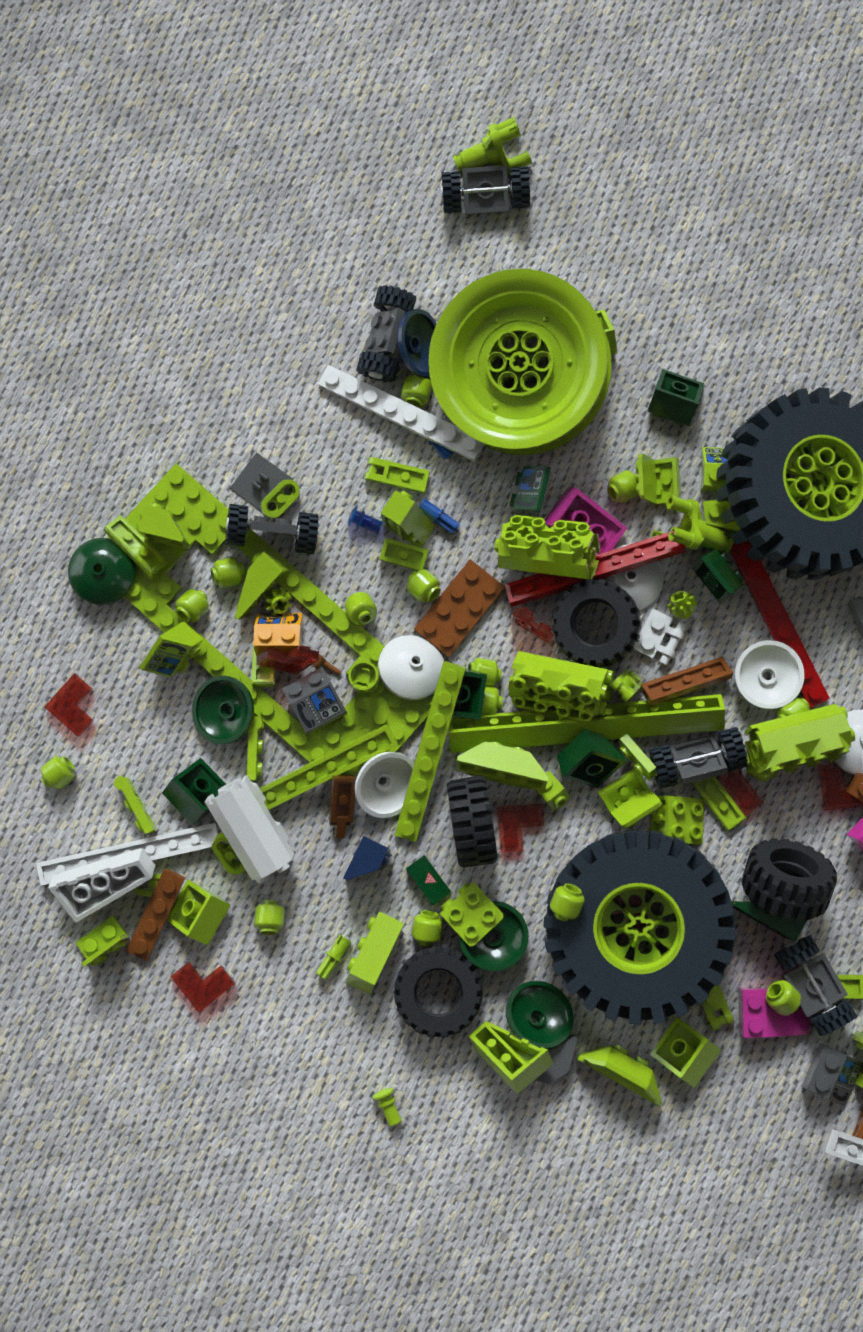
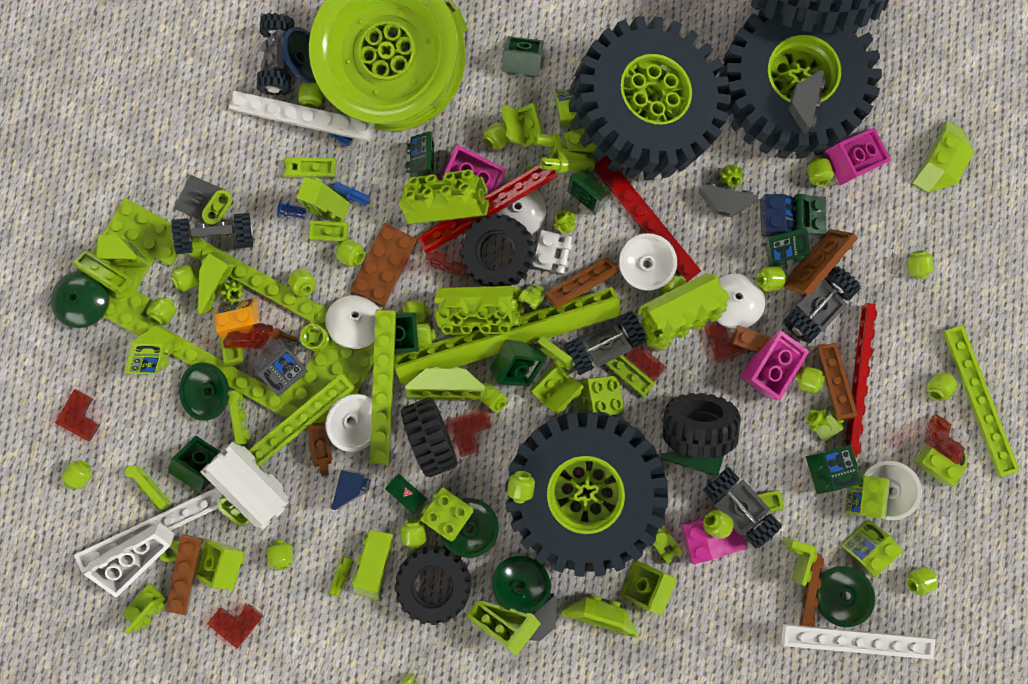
camera: 20 degrees left, 0 degrees up
(832, 1074) = (772, 577): dark grey slope -> none

